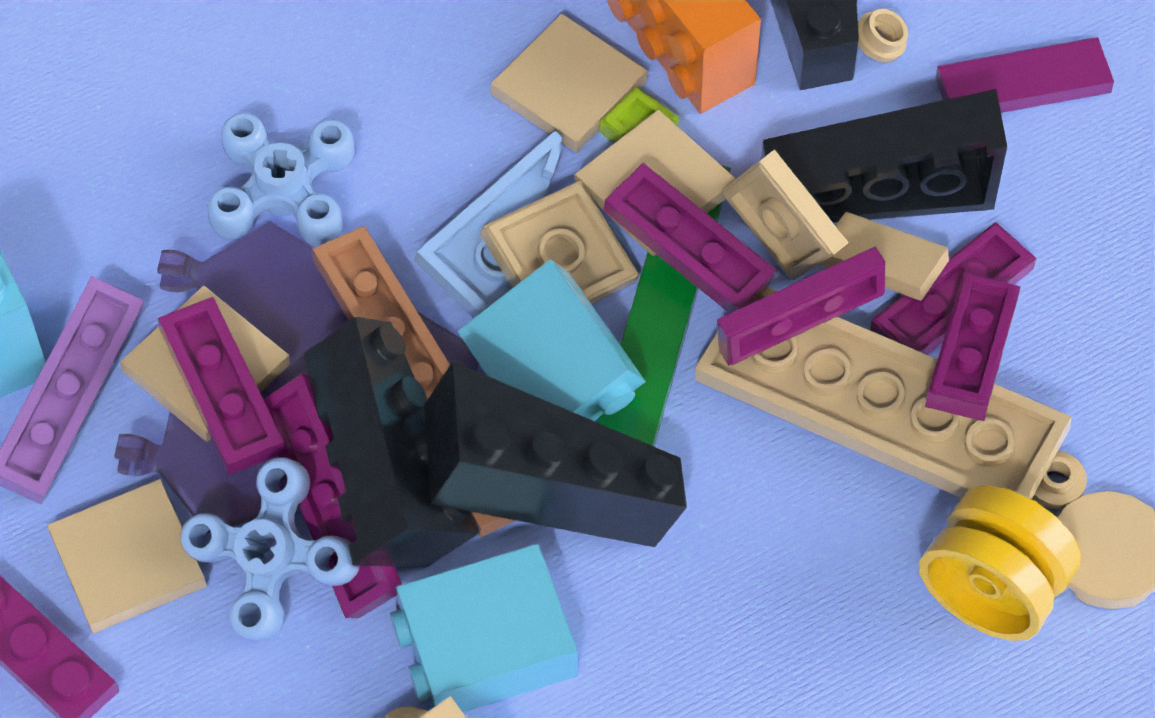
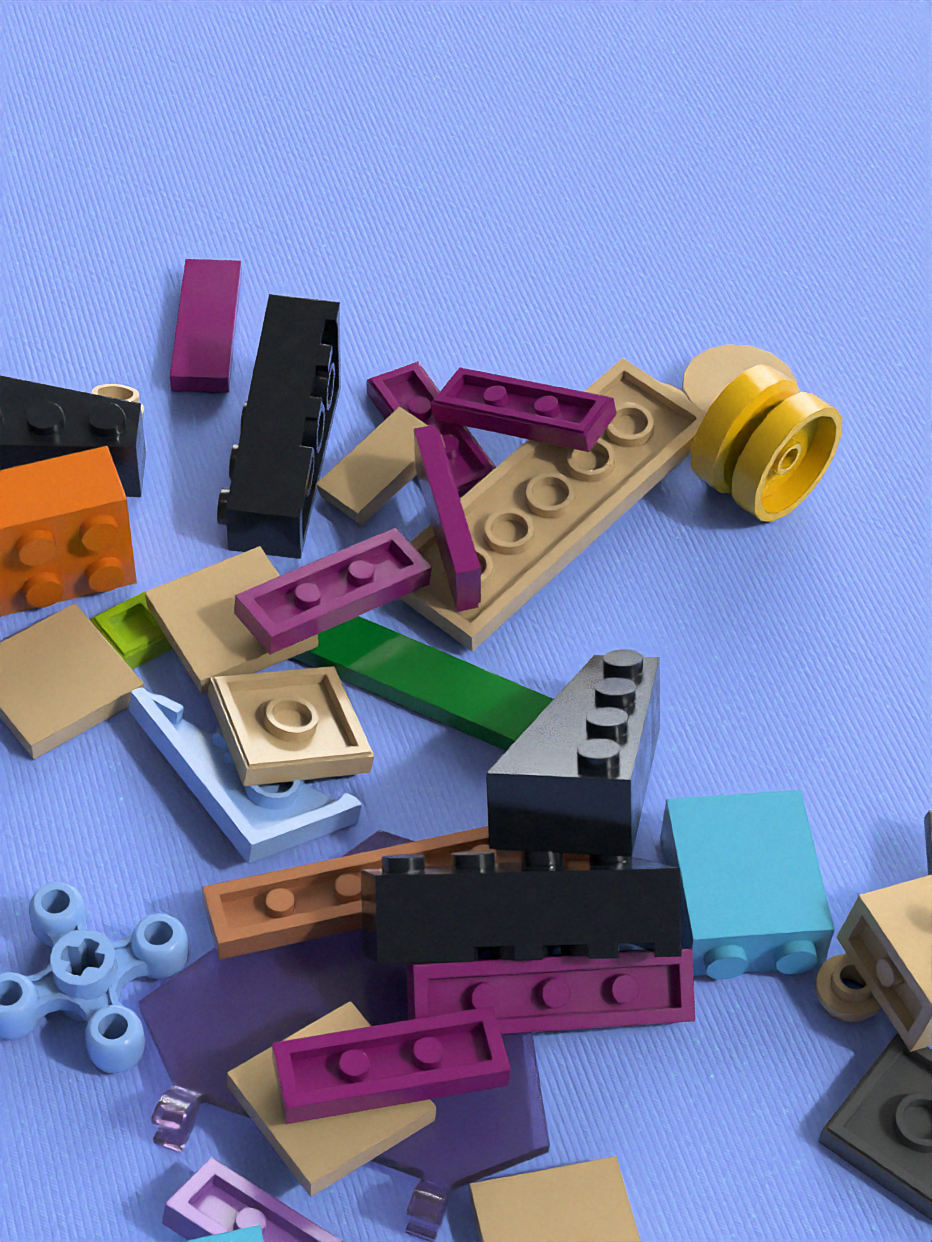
camera: 80 degrees left, 10 degrees down
(249, 544) = (596, 1084): light blue gear -> none
(553, 346) = (429, 738): medium azure brick -> none
(784, 216) = (336, 500): tan tile -> none

